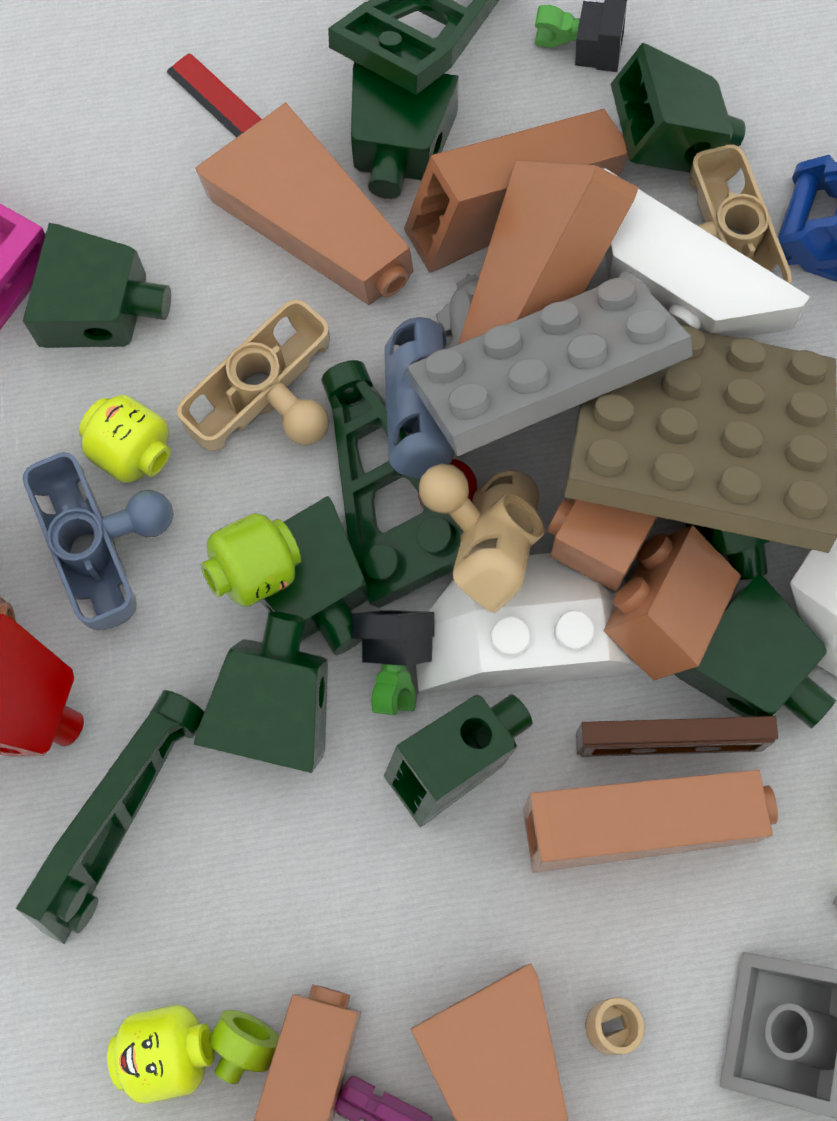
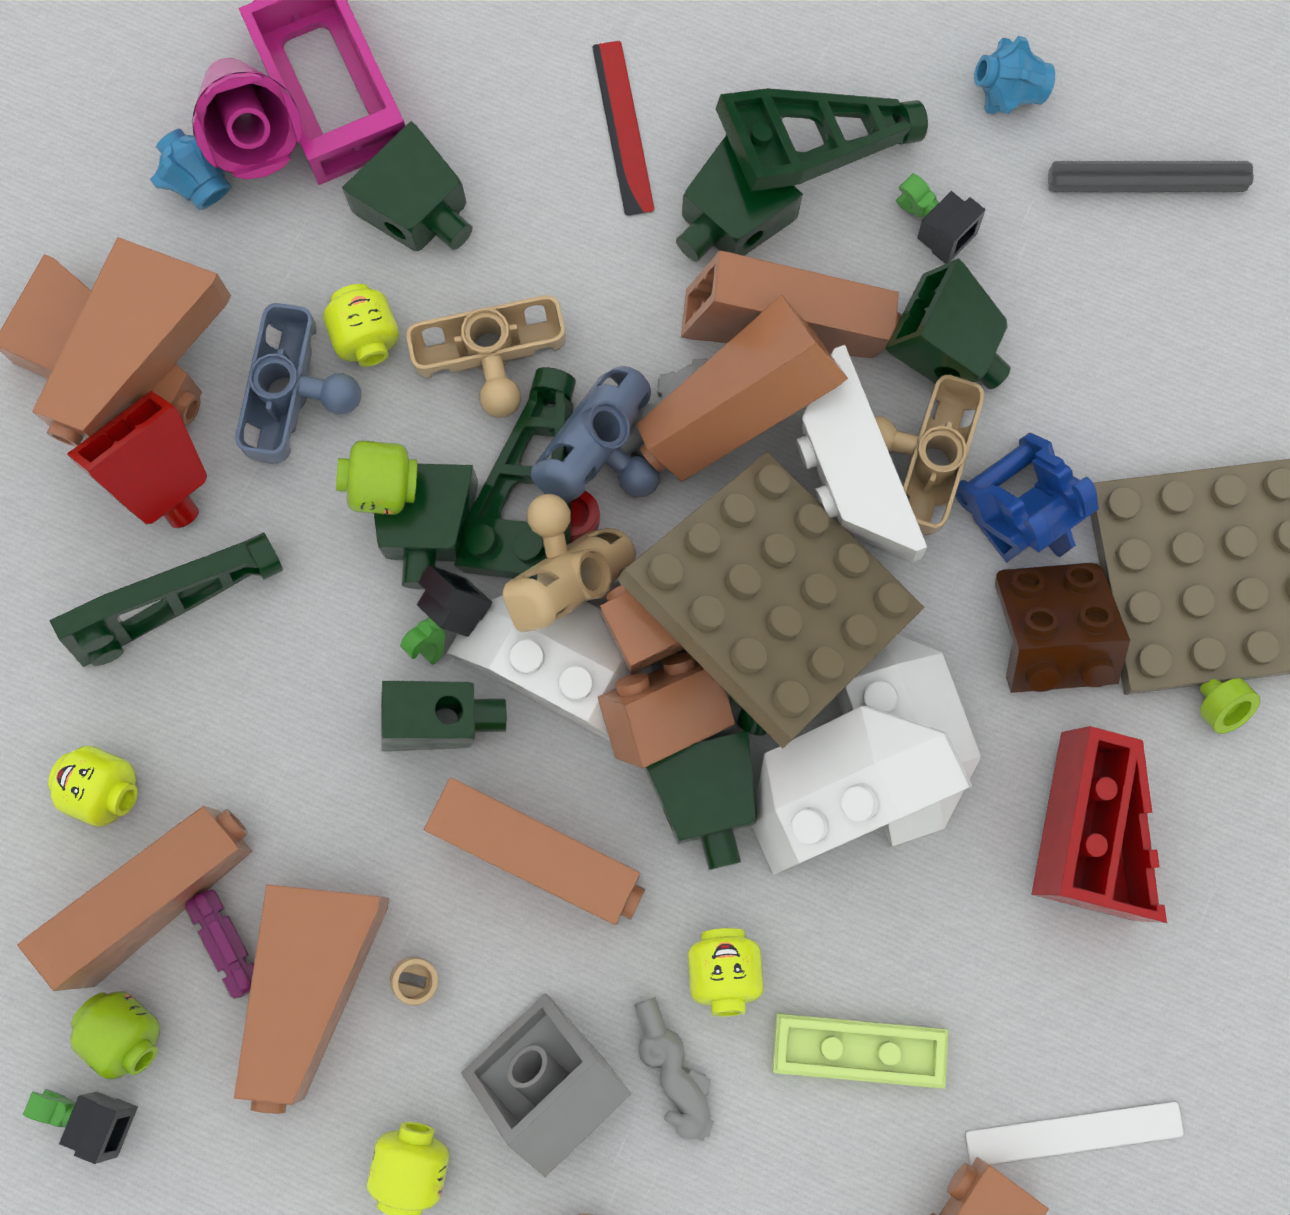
camera: 30 degrees right, 5 degrees up
(243, 1044) = (151, 815): lime tile -> none
(270, 699) = (330, 589): dark green torso -> none
(306, 203) = (617, 216): nougat slope -> none
(548, 362) = (686, 470): light grey plate -> none
(676, 736) = (603, 808): reddish brown tile -> none

